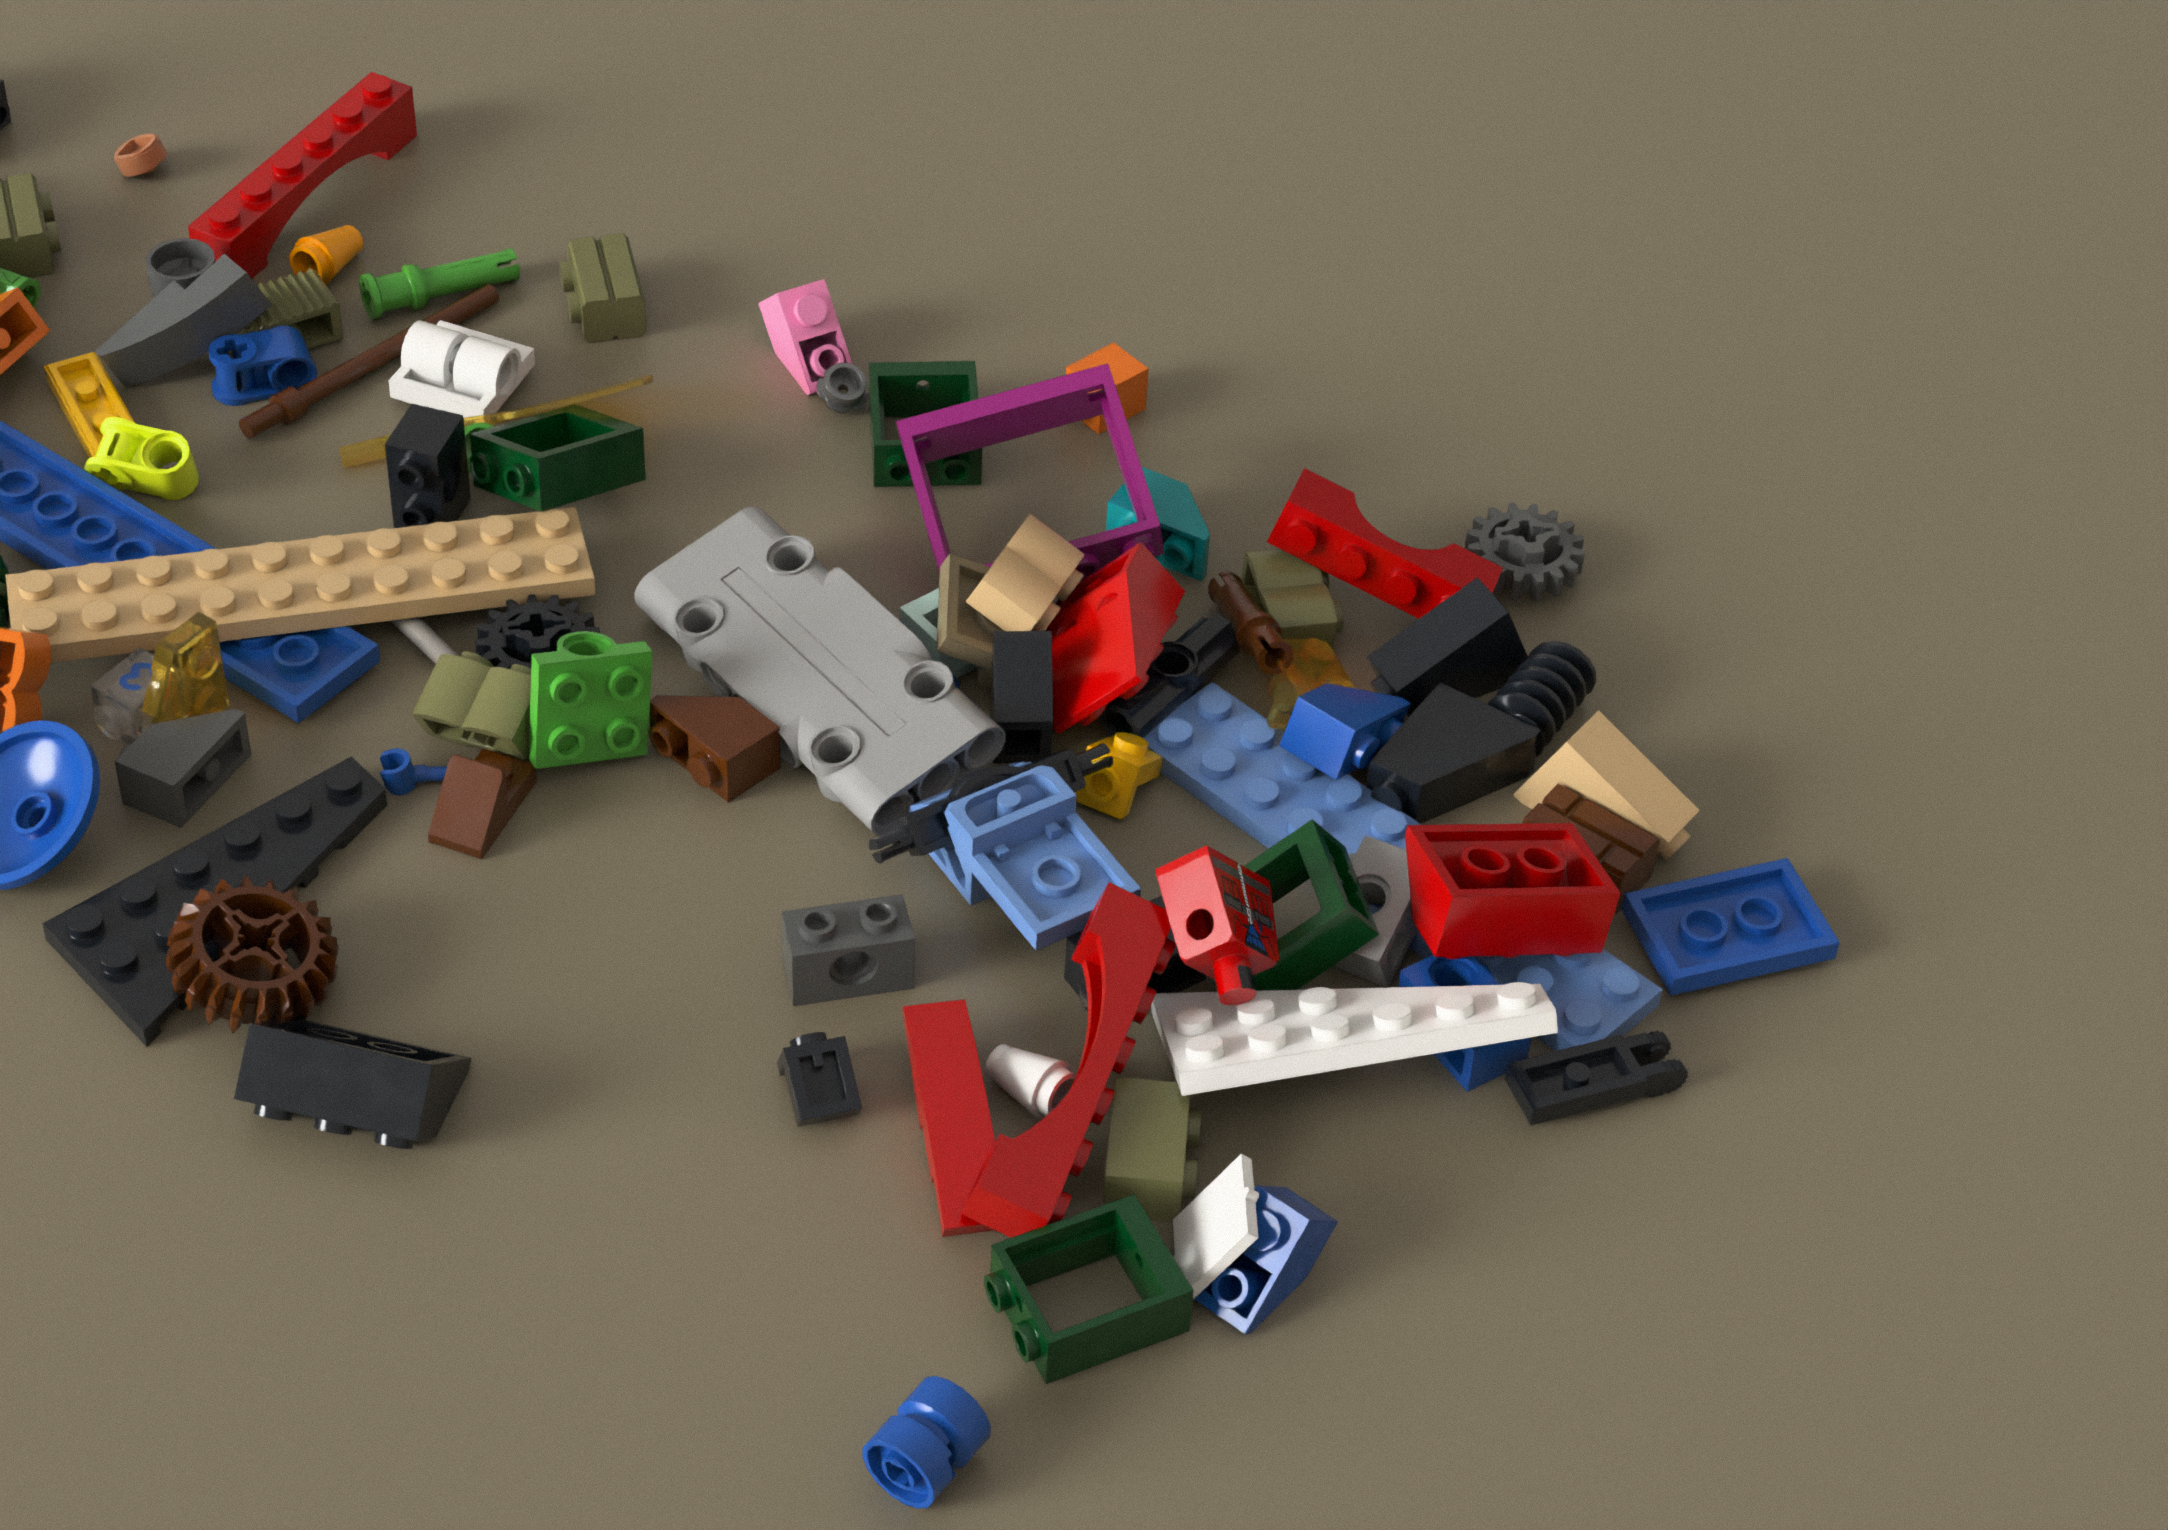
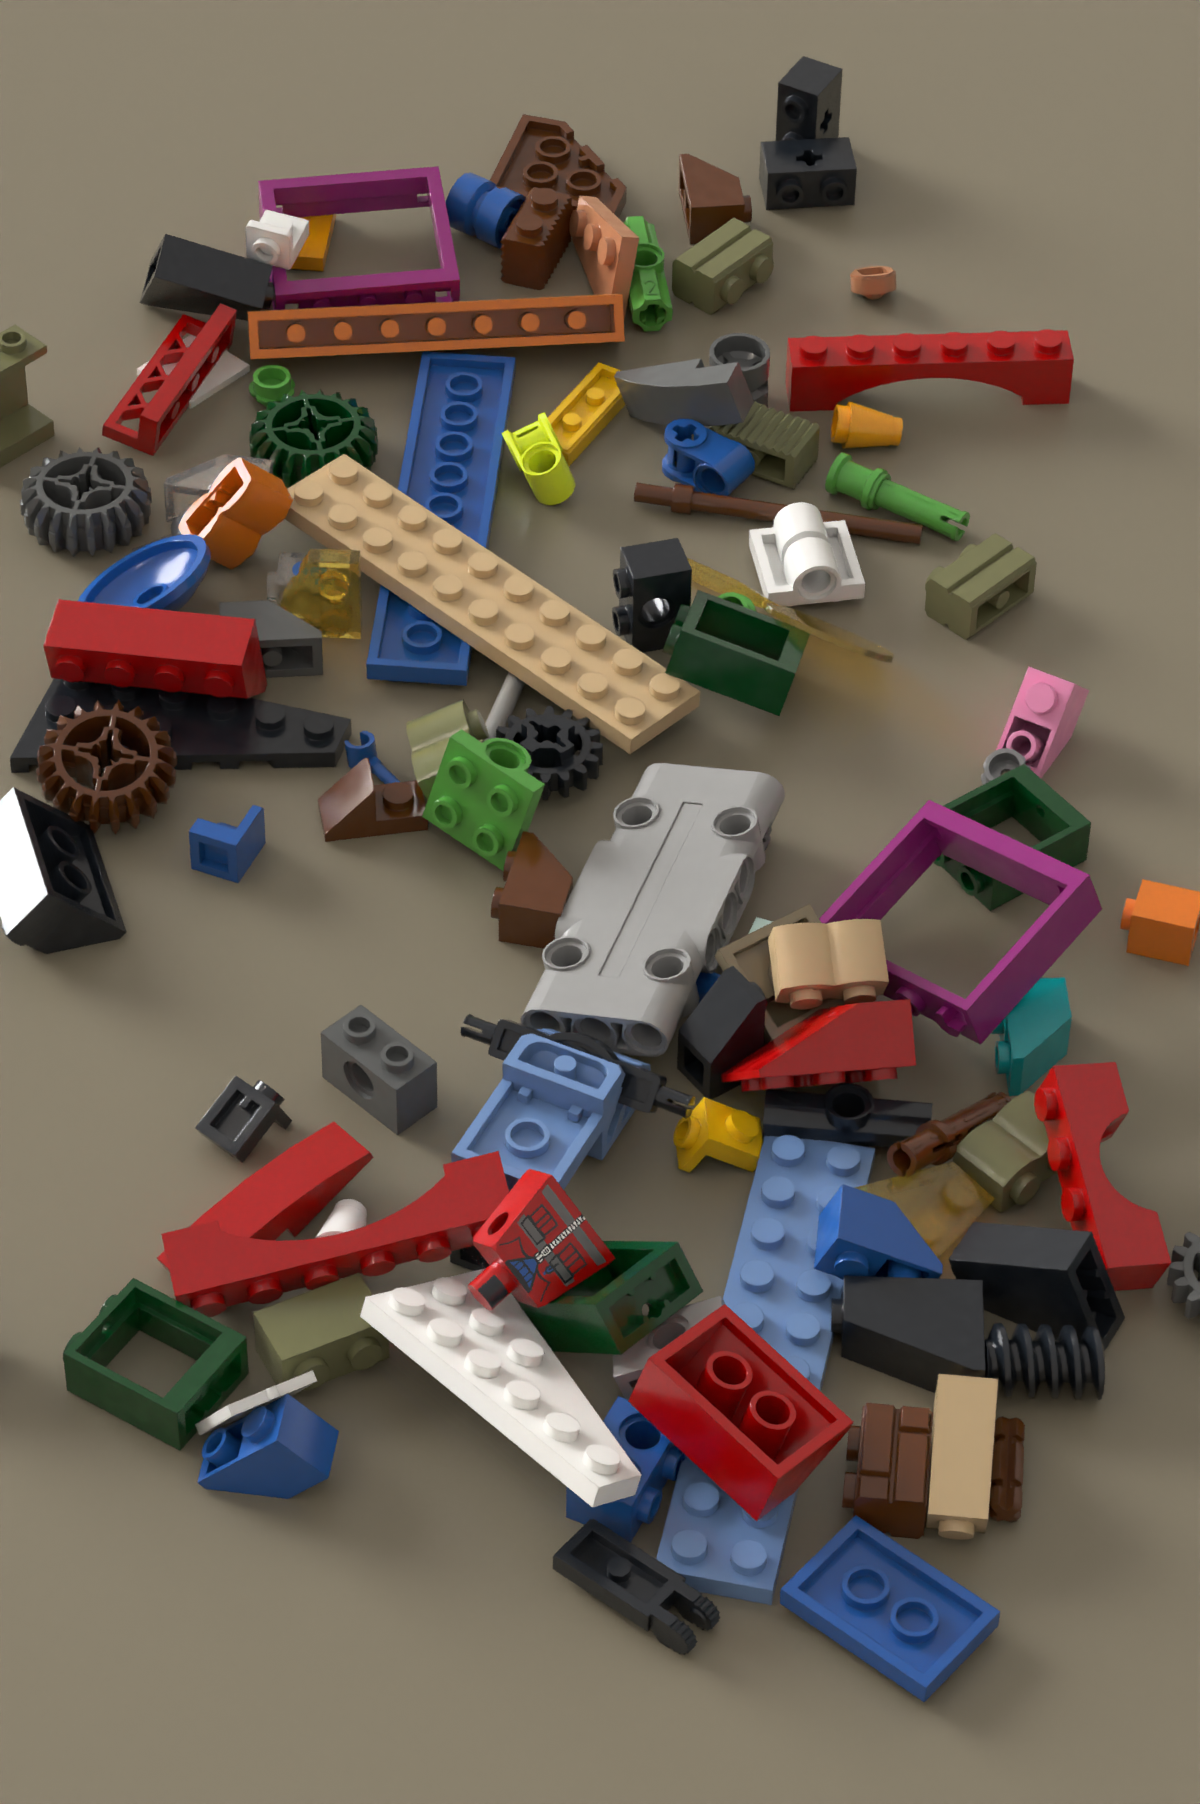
camera: 60 degrees right, 0 degrees up
(143, 834) = (155, 649): none -> red wedge
(439, 926) = (227, 849): none -> blue panel

